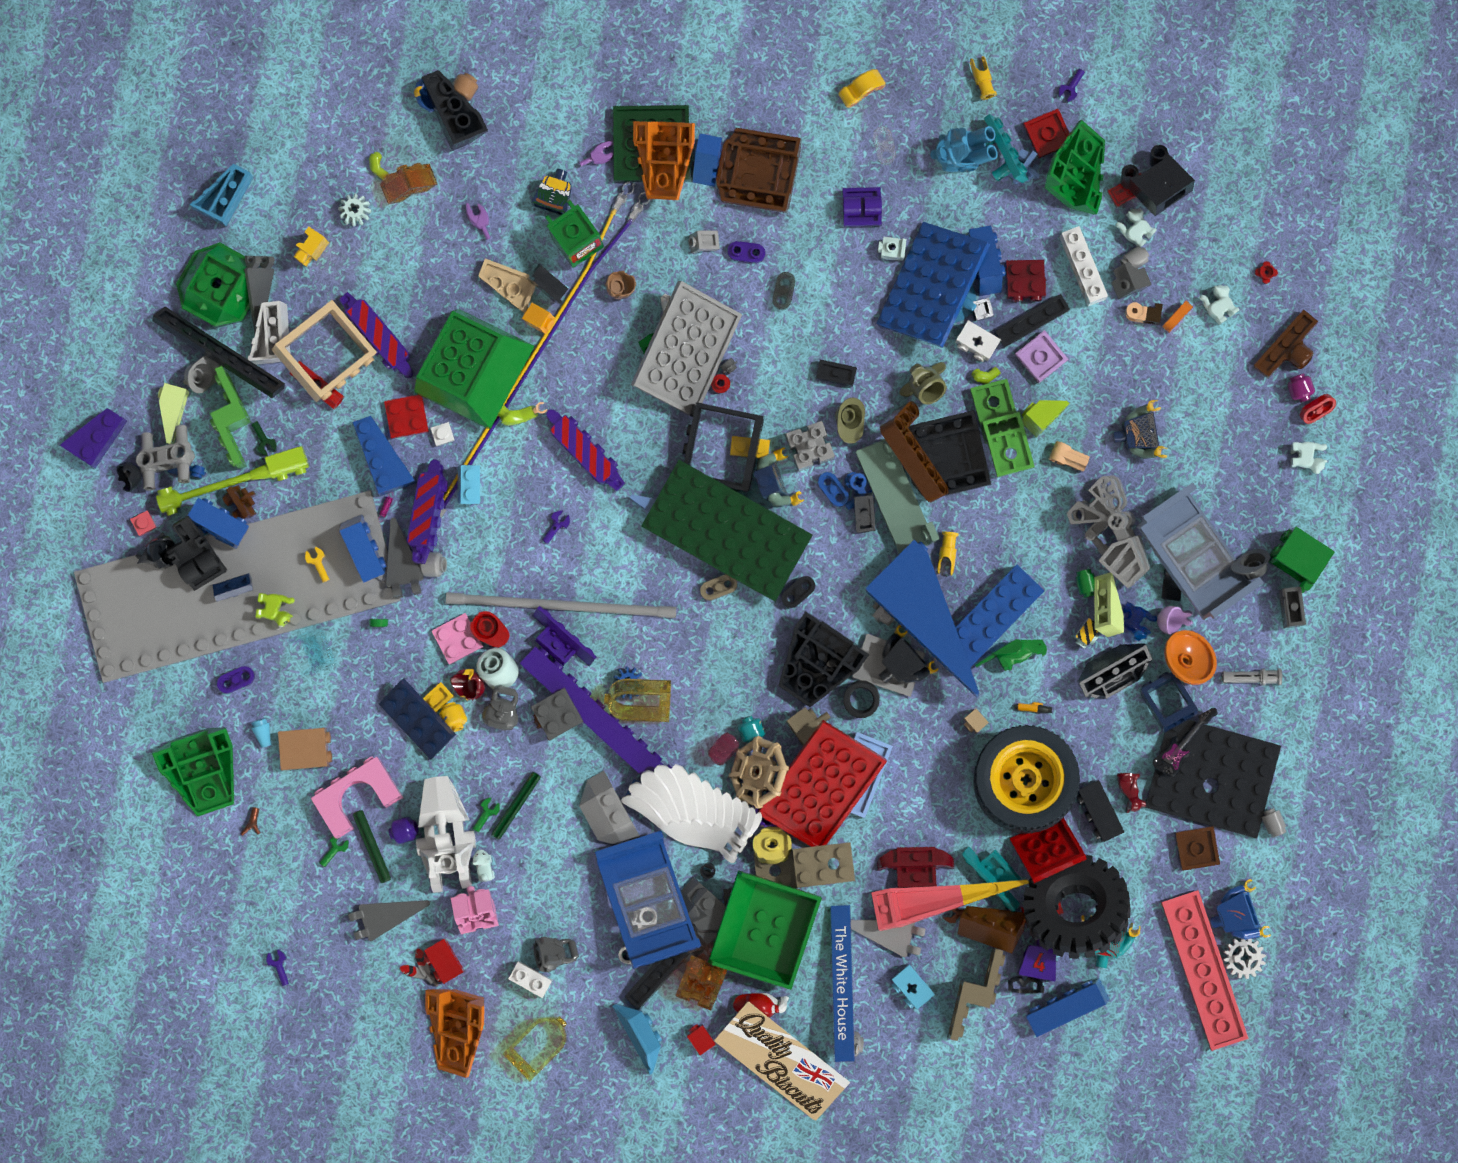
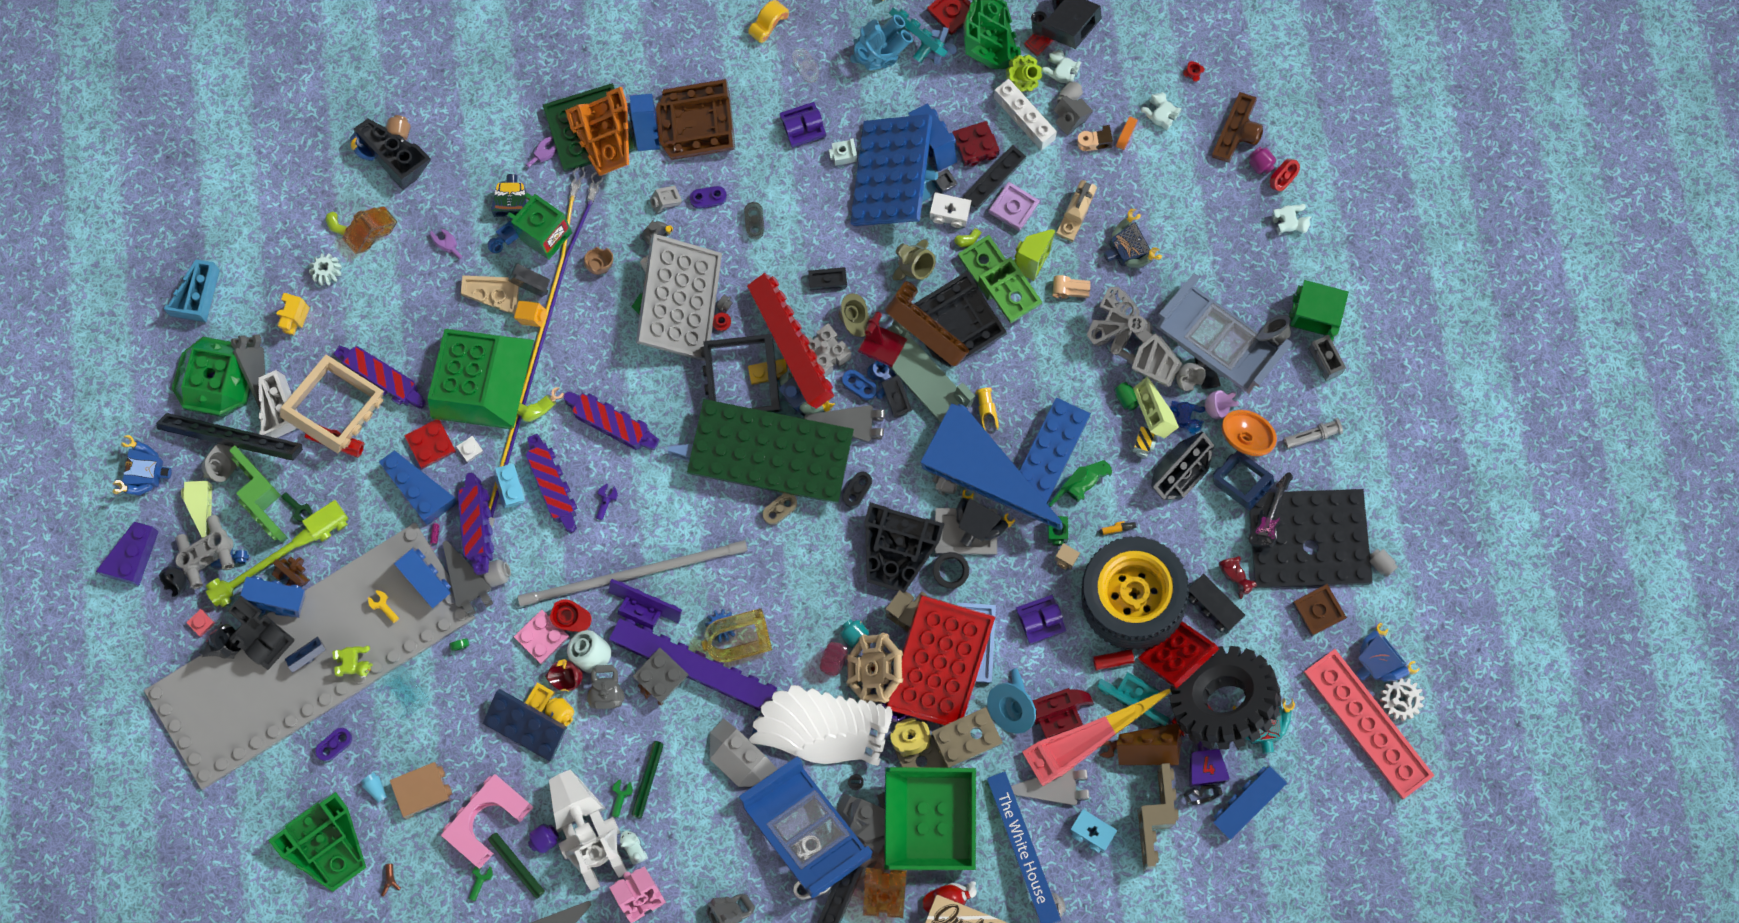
camera: 15 degrees left, 10 degrees down
(127, 356) = (141, 470): none -> torso
(509, 492) = (550, 483): none -> dark purple hinge
(539, 230) = (505, 234): none -> blue plate
(684, 273) = (656, 228): none -> dark grey piece
(780, 427) = (790, 340): none -> red brick
(815, 522) = (857, 418): none -> dark grey flag
(867, 457) = (881, 343): none -> dark red plate
(875, 846) = (1011, 705): none -> dark azure piece
(931, 773) = (1041, 619): none -> dark purple plate
(982, 687) = (1058, 540): none -> green brick
(986, 833) = (1113, 659): none -> red piece
(1096, 223) = (1024, 72): none -> lime plant
(1100, 381) = (1076, 210): none -> tan plate
(1153, 582) = (1189, 376): none -> light grey hair

